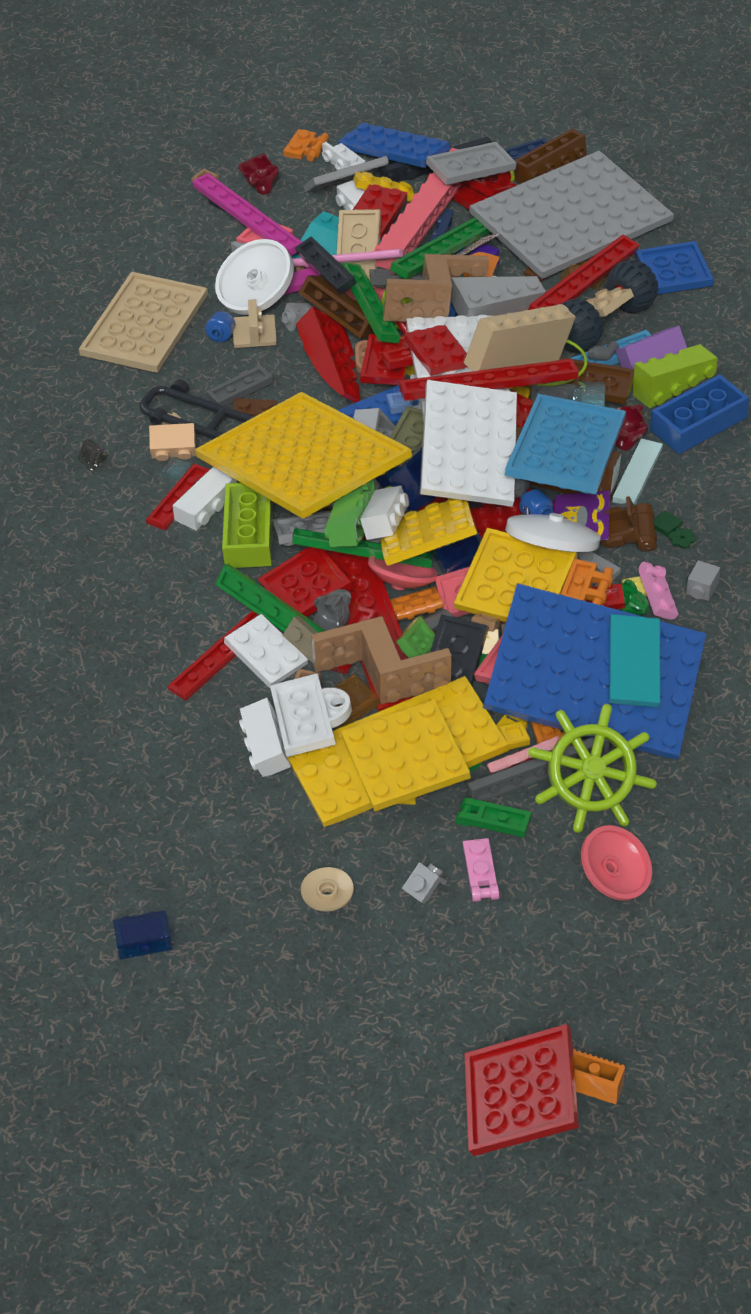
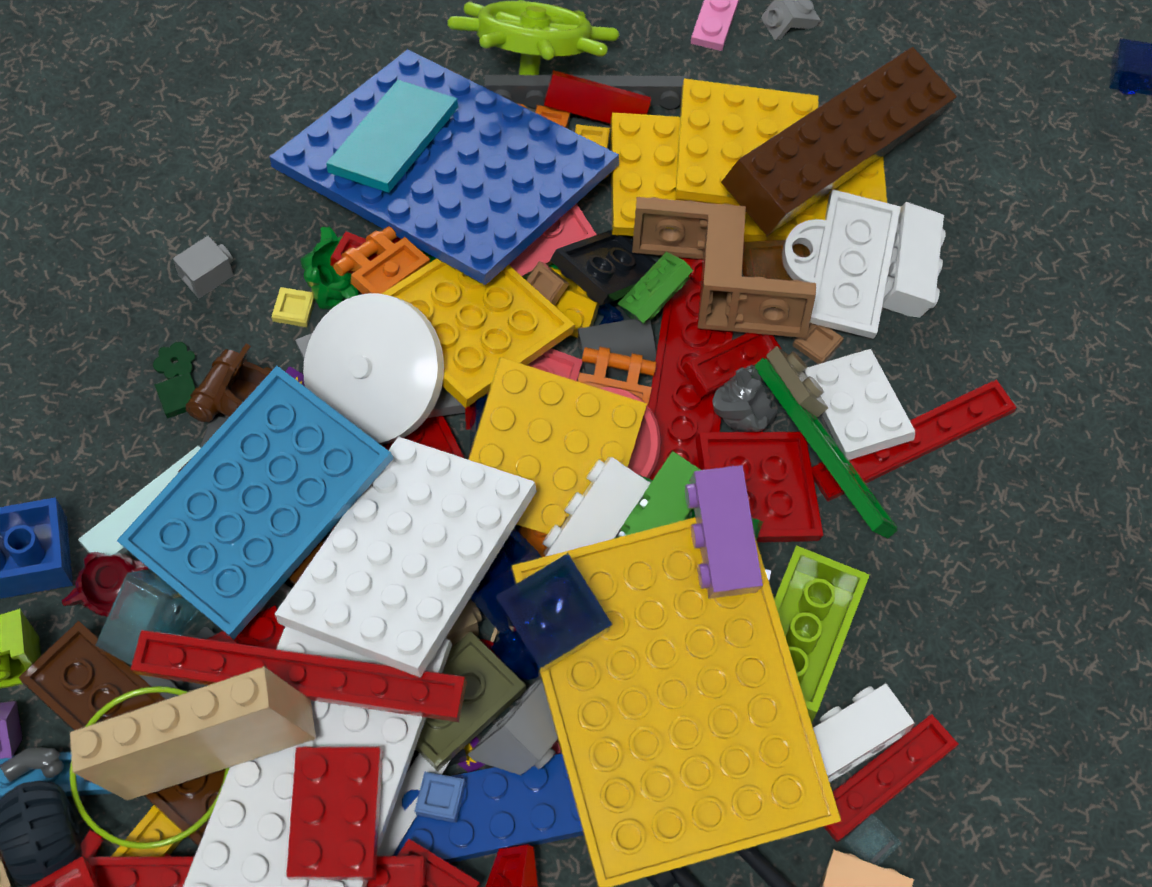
camera: 160 degrees left, 15 degrees up
(305, 487) = (723, 532): none -> medium lavender brick
(327, 880) = (909, 32): tan dish -> none
(340, 766) = (837, 140): none -> reddish brown brick
(375, 427) = (553, 613): none -> clear blue brick
(493, 817) = (668, 55): green plate -> none
(658, 590) = (272, 280): bright pink plate -> none

